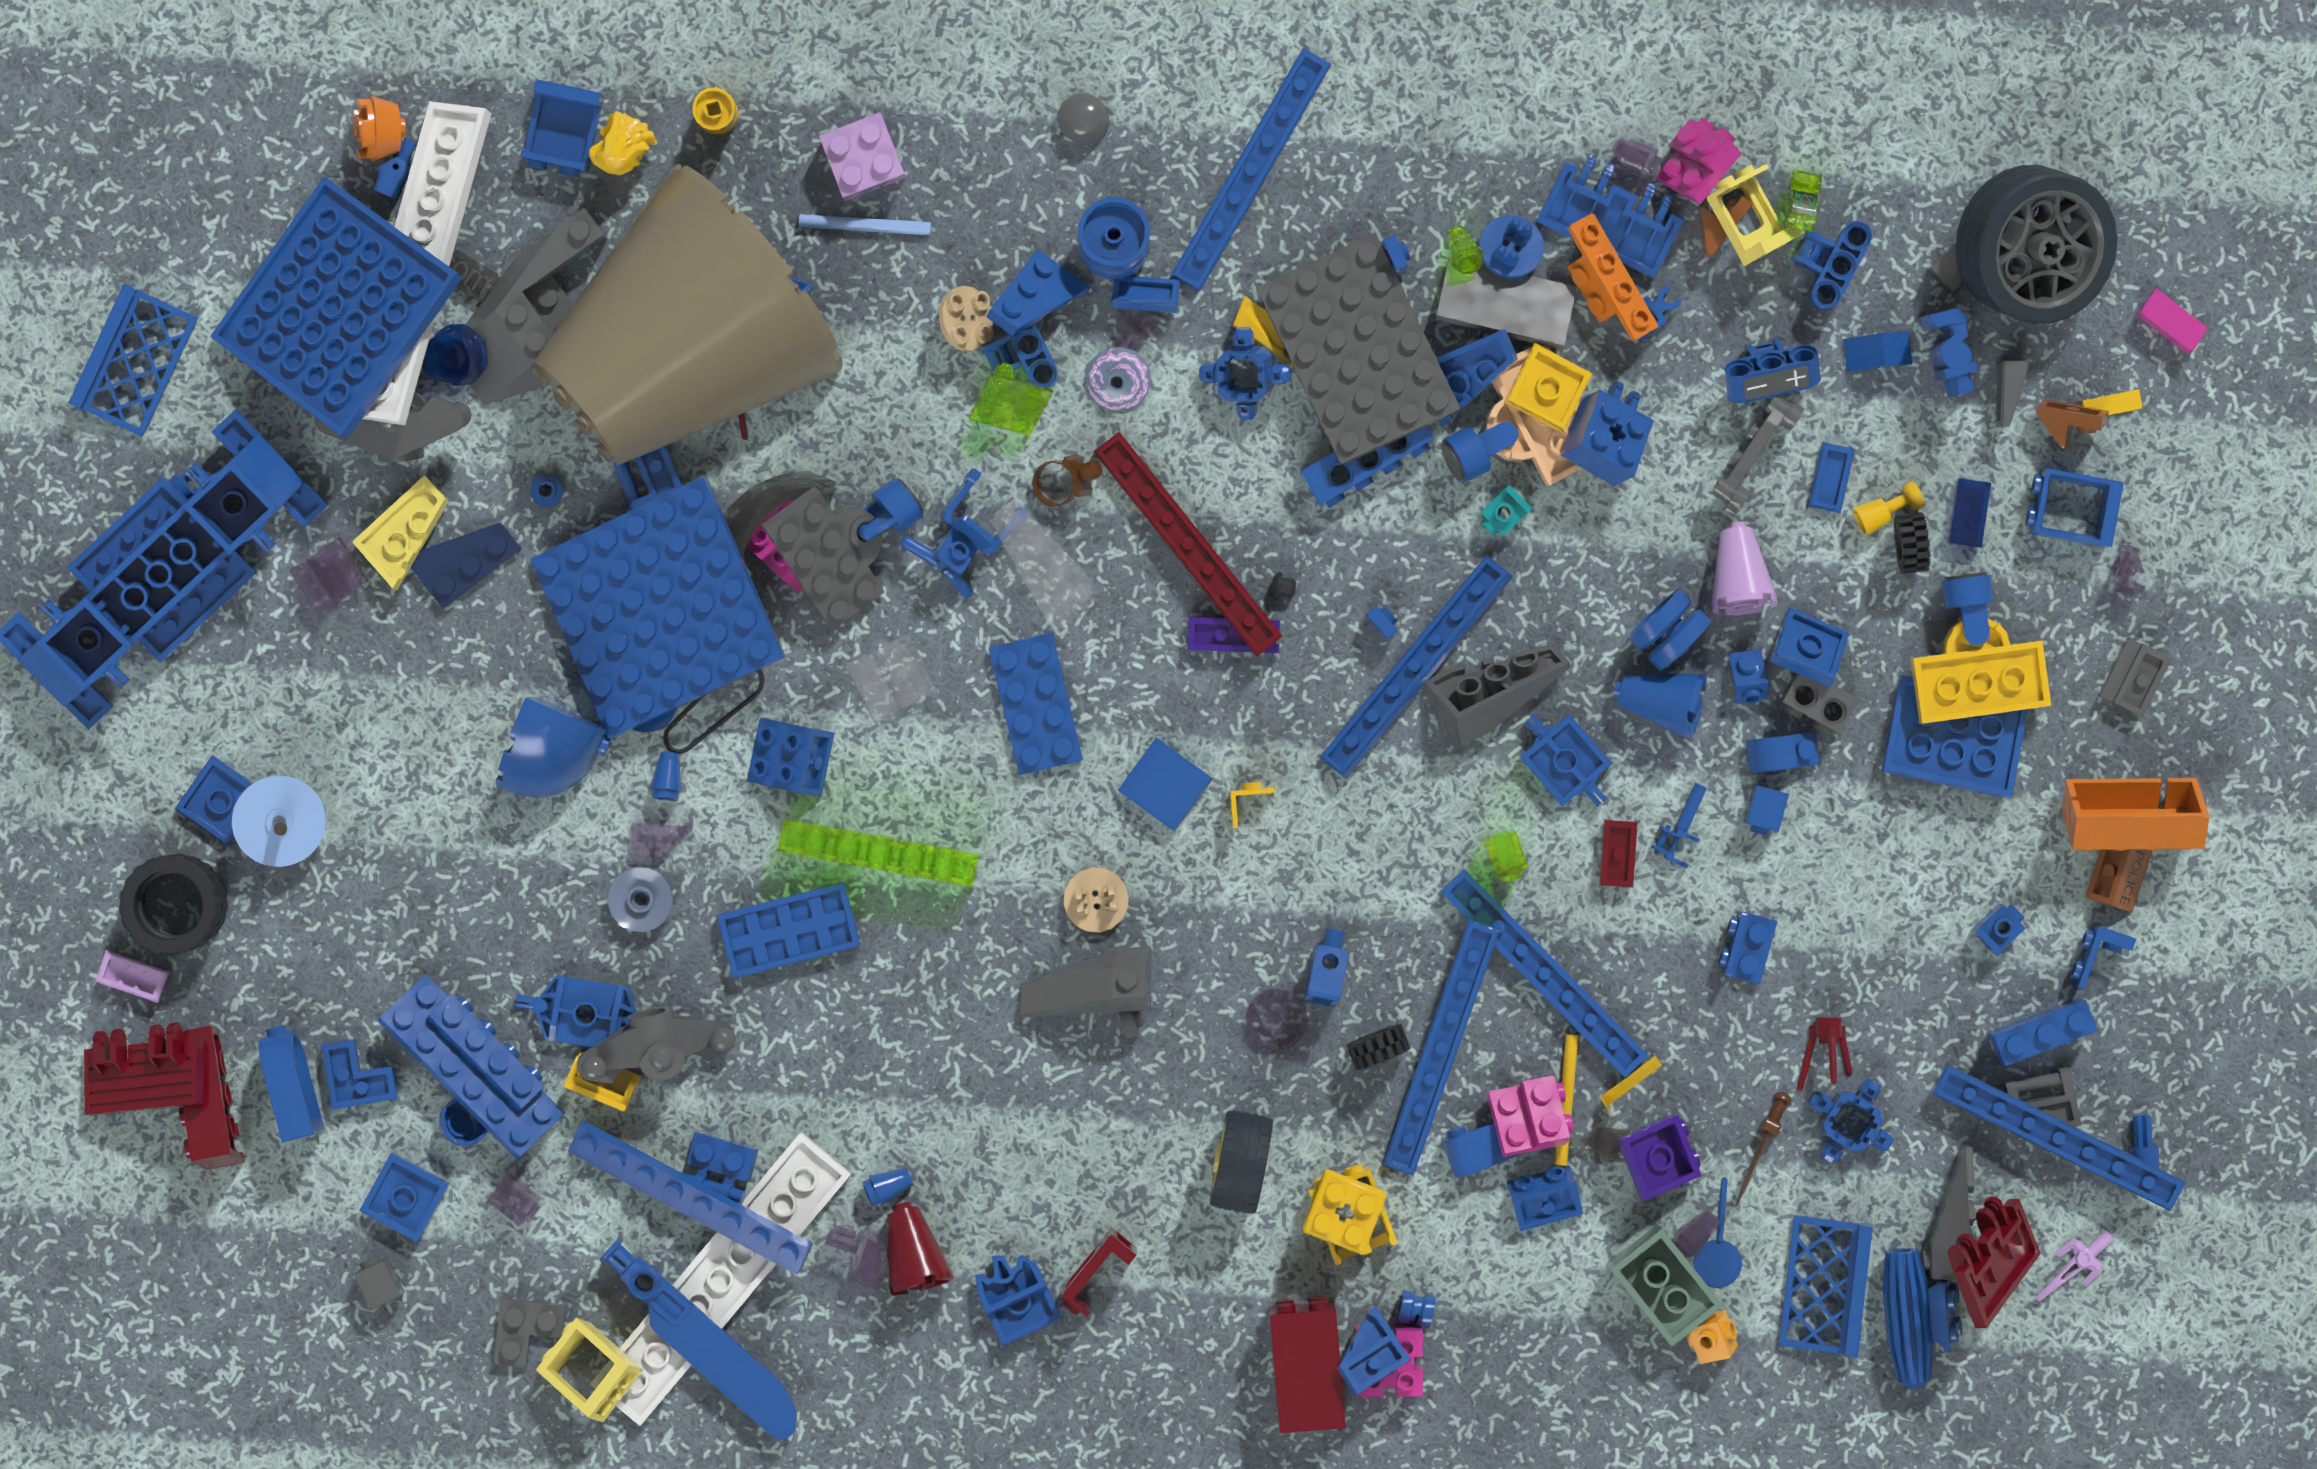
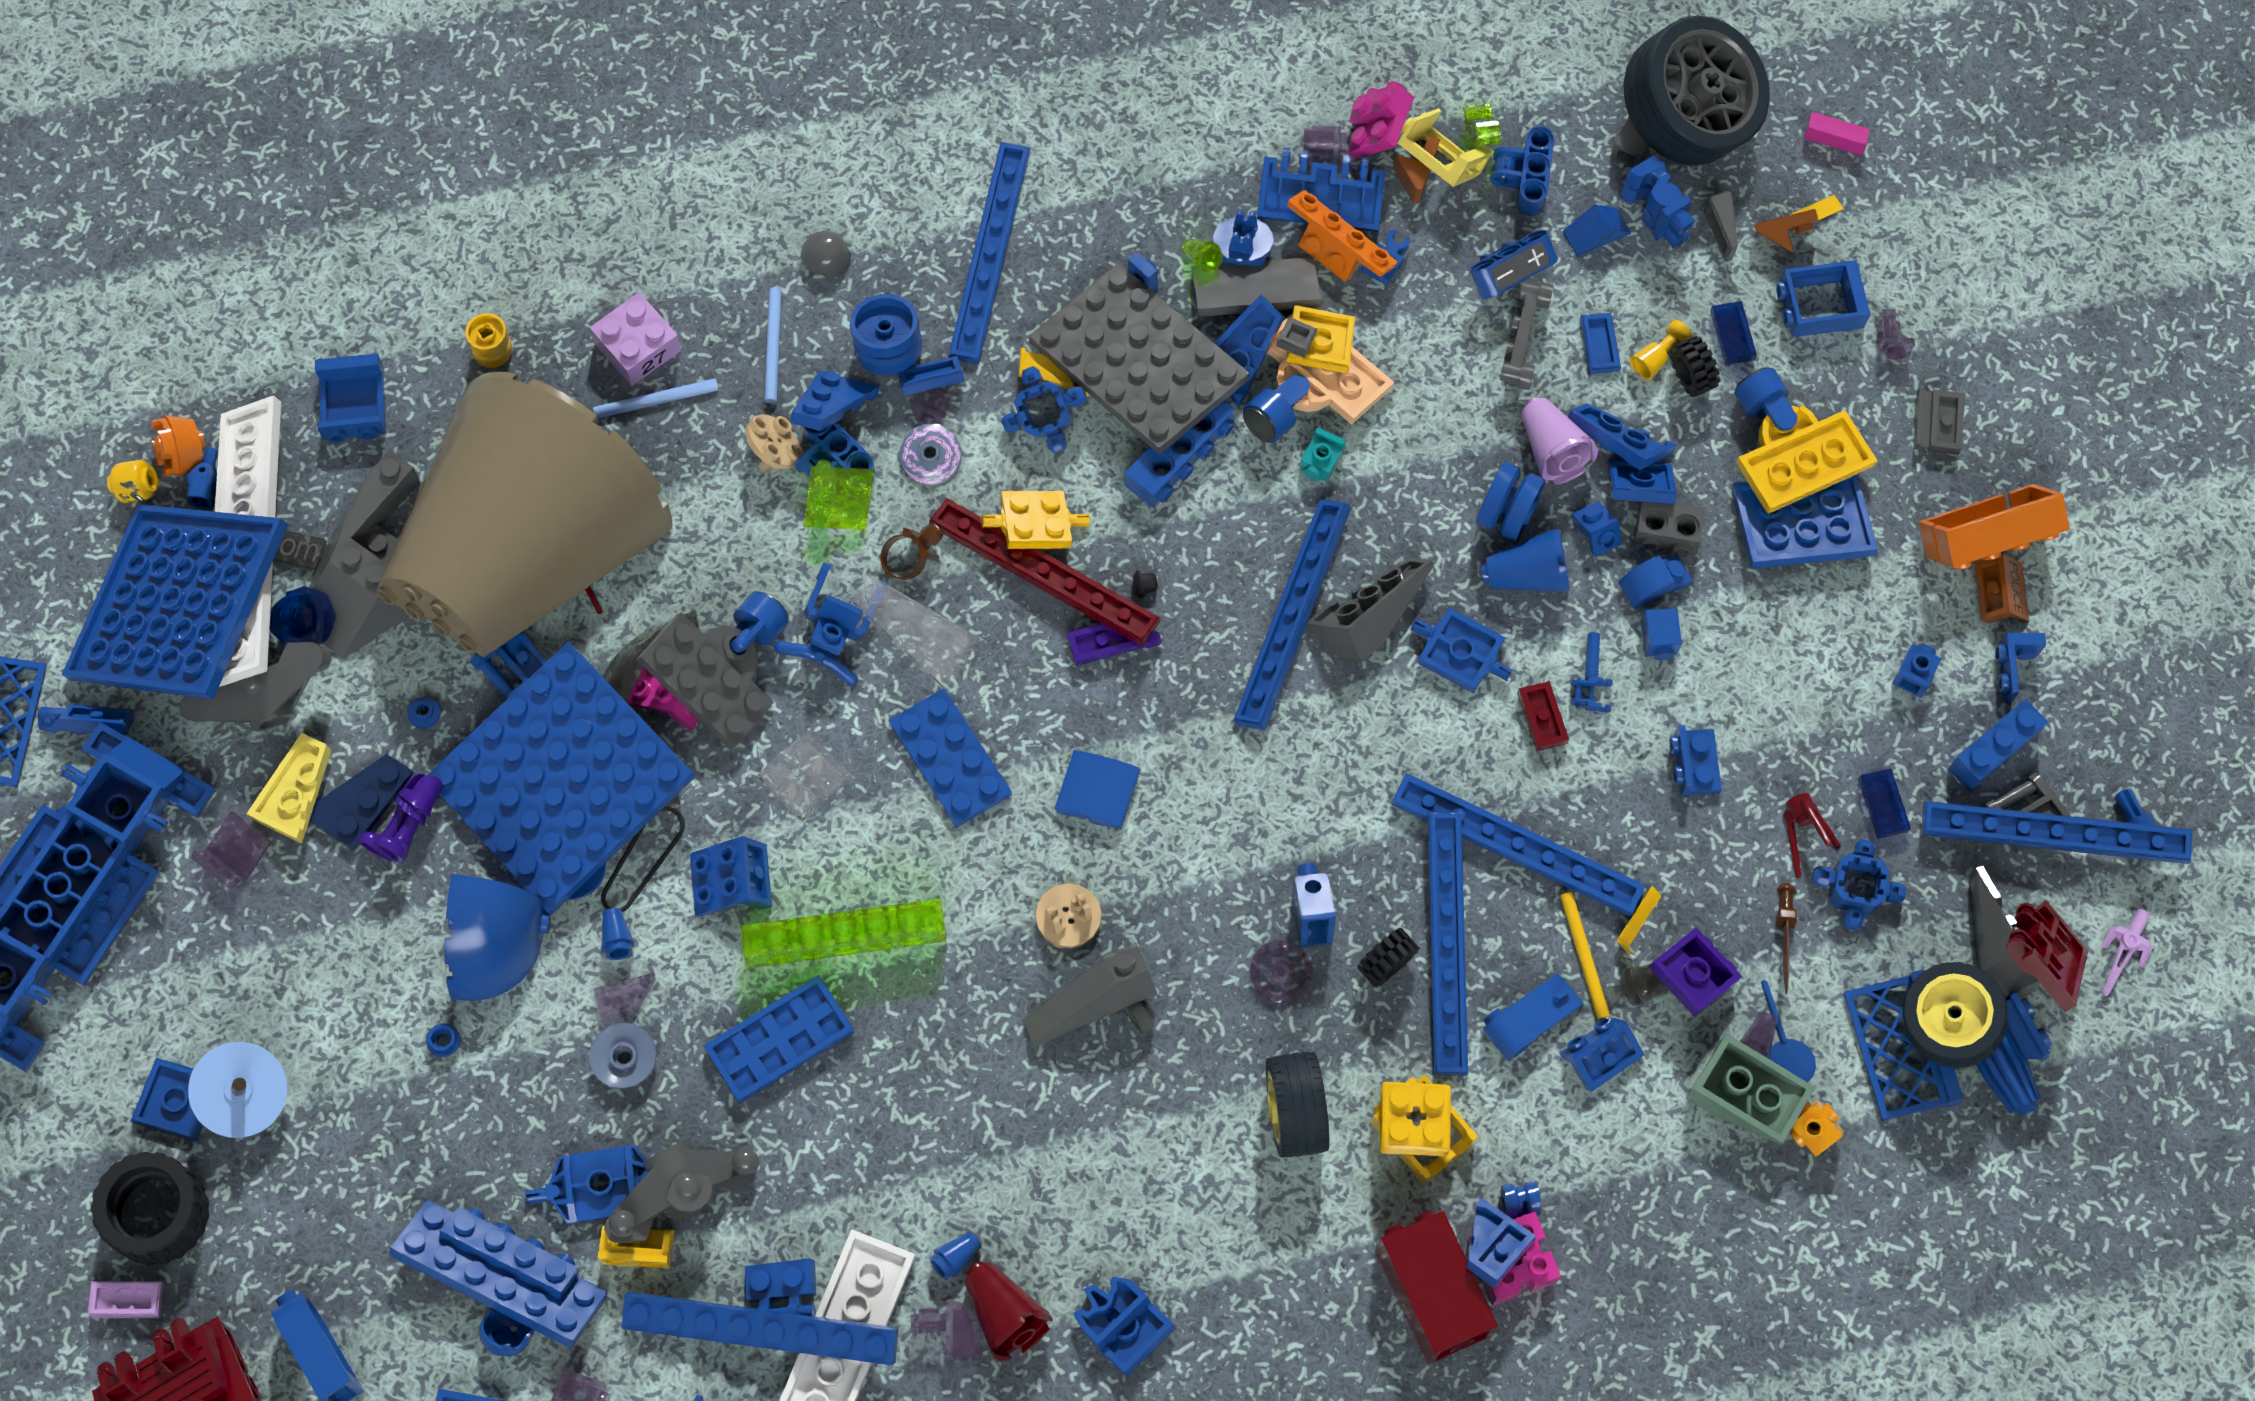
camera: 20 degrees left, 20 degrees down
(224, 392) = (84, 719): none -> blue hinge
(325, 150) = (133, 481): none -> yellow head
(350, 1085) = (379, 1334): blue plate -> none
(471, 833) = (443, 1030): none -> blue plate
(508, 592) = (413, 806): none -> dark purple piece
(622, 144) = (410, 392): yellow hair -> none
(999, 203) = (772, 352): none -> light blue bar
(1111, 1242) = (1201, 1229): dark red window -> none
(1198, 487) = (1035, 520): none -> yellow plate
(1247, 789) = (1175, 769): yellow bracket -> none
(1383, 621) = (1246, 582): blue plate -> none
(1505, 855) = (1439, 743): clear neon green brick -> none
(1522, 385) = (1296, 337): none -> dark grey tile
(1530, 1116) = (1558, 975): plate -> none
(1608, 435) = (1390, 359): blue hinge -> none
(1810, 596) = (1629, 444): none -> blue wing
(1903, 1282) = (1958, 1040): none -> wheel
(1910, 1049) = (1884, 803): none -> clear blue plate

